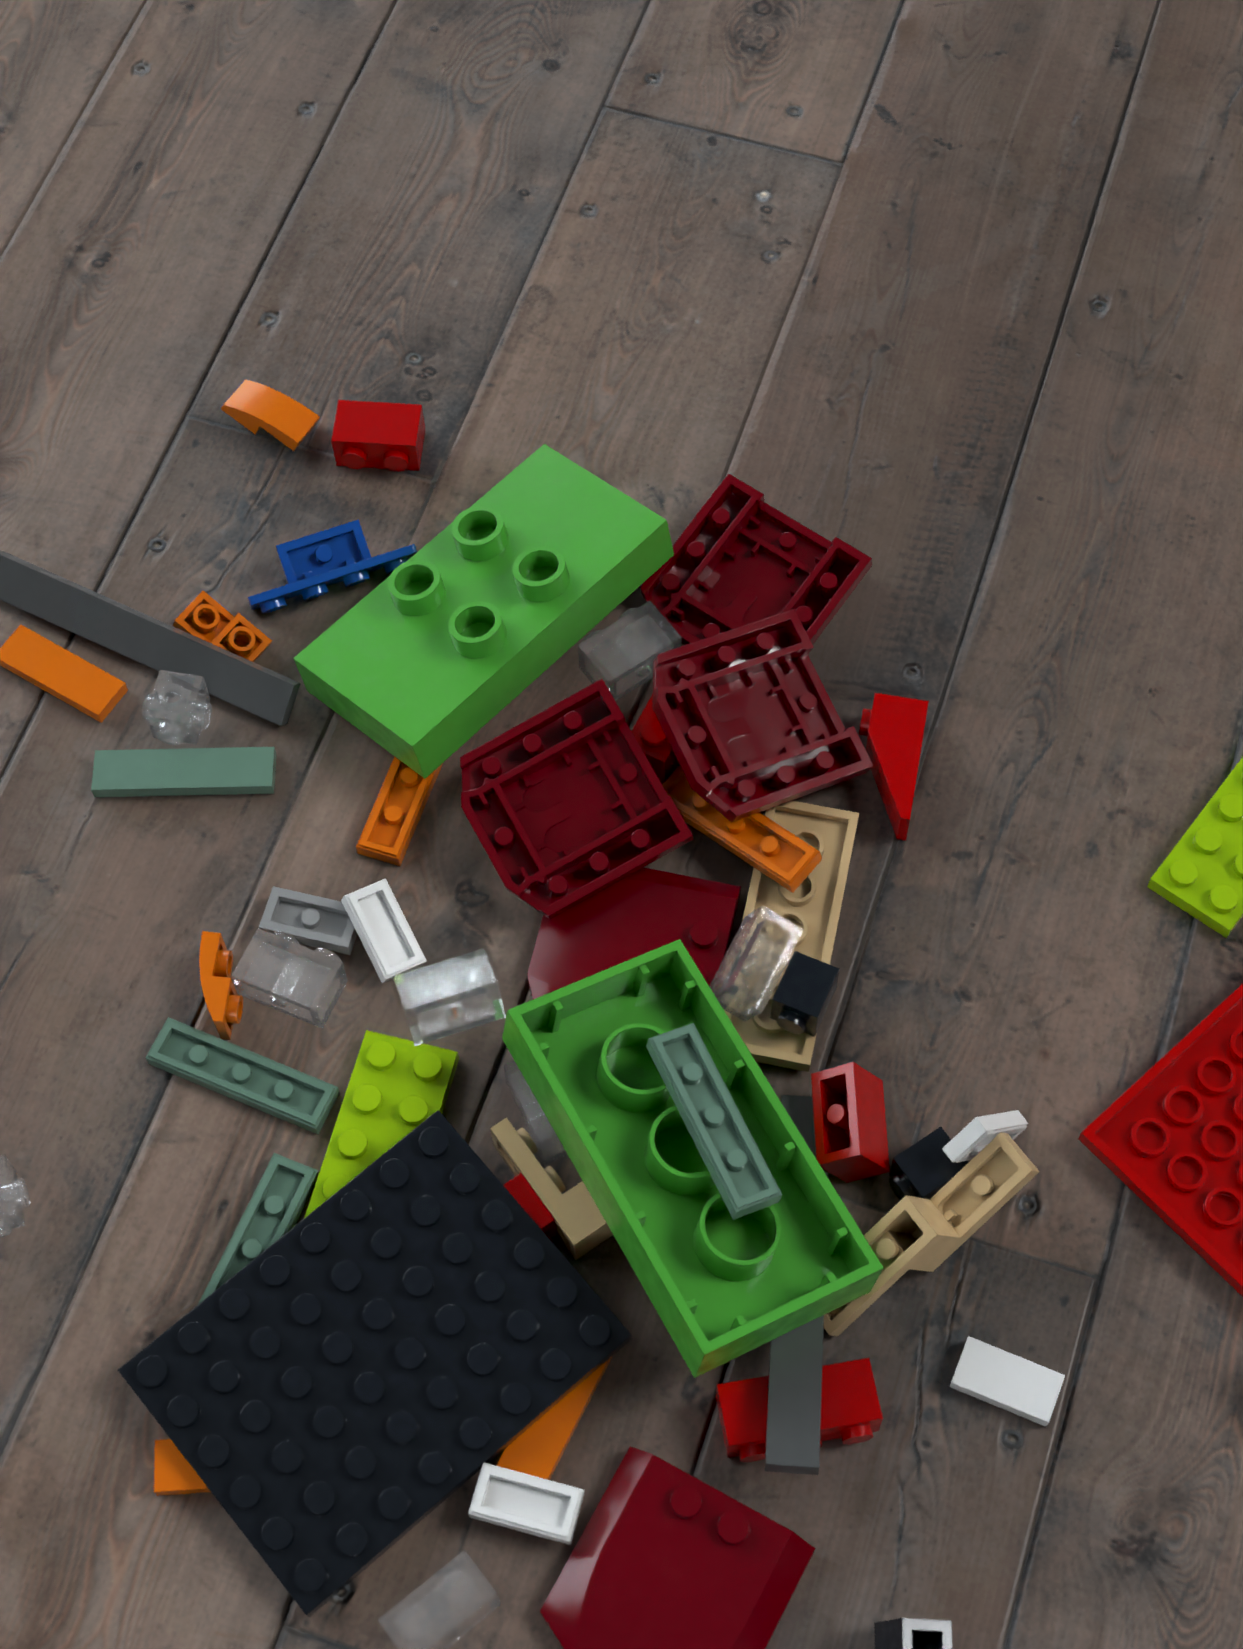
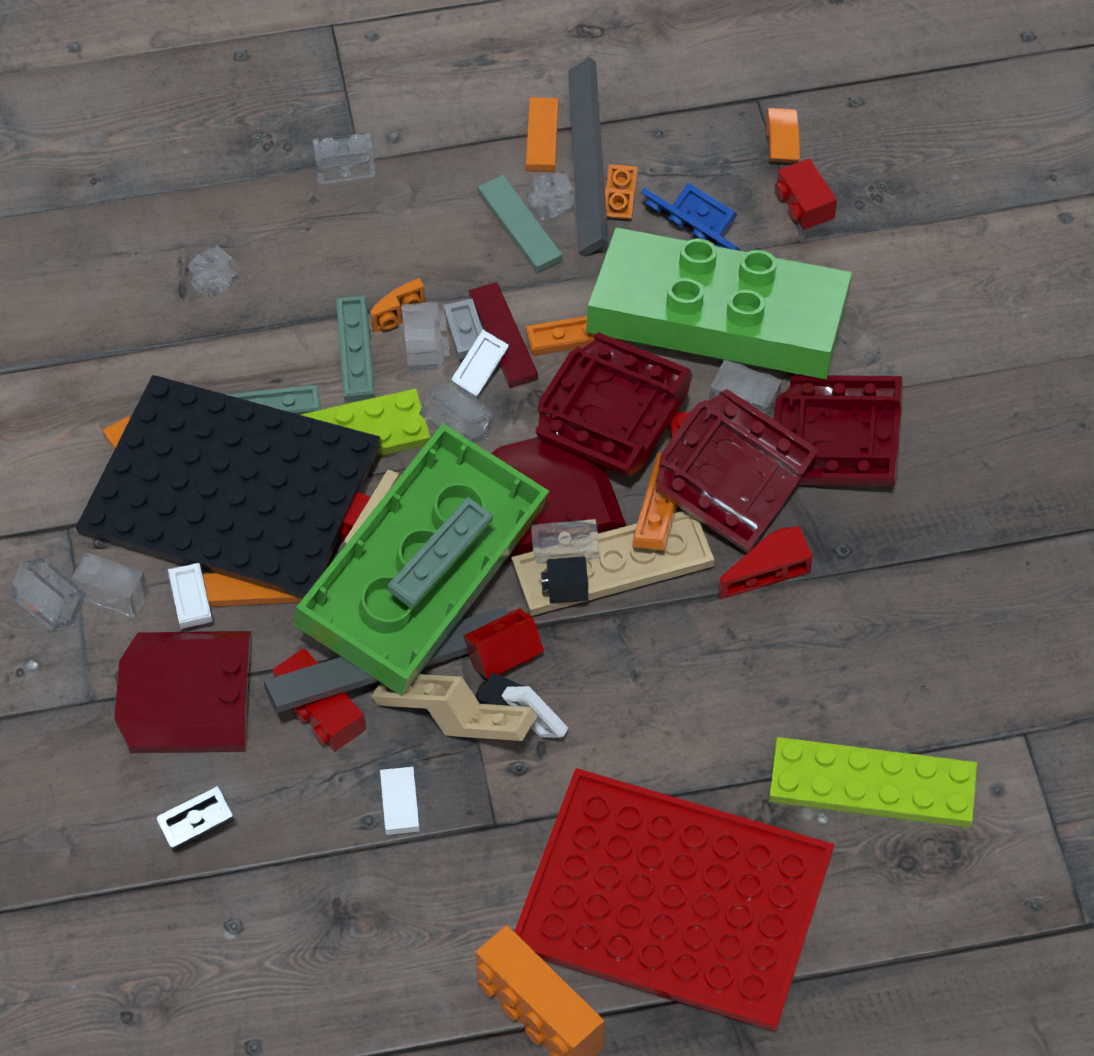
camera: 60 degrees right, 5 degrees down
(337, 875) = (499, 322): none -> dark red tile

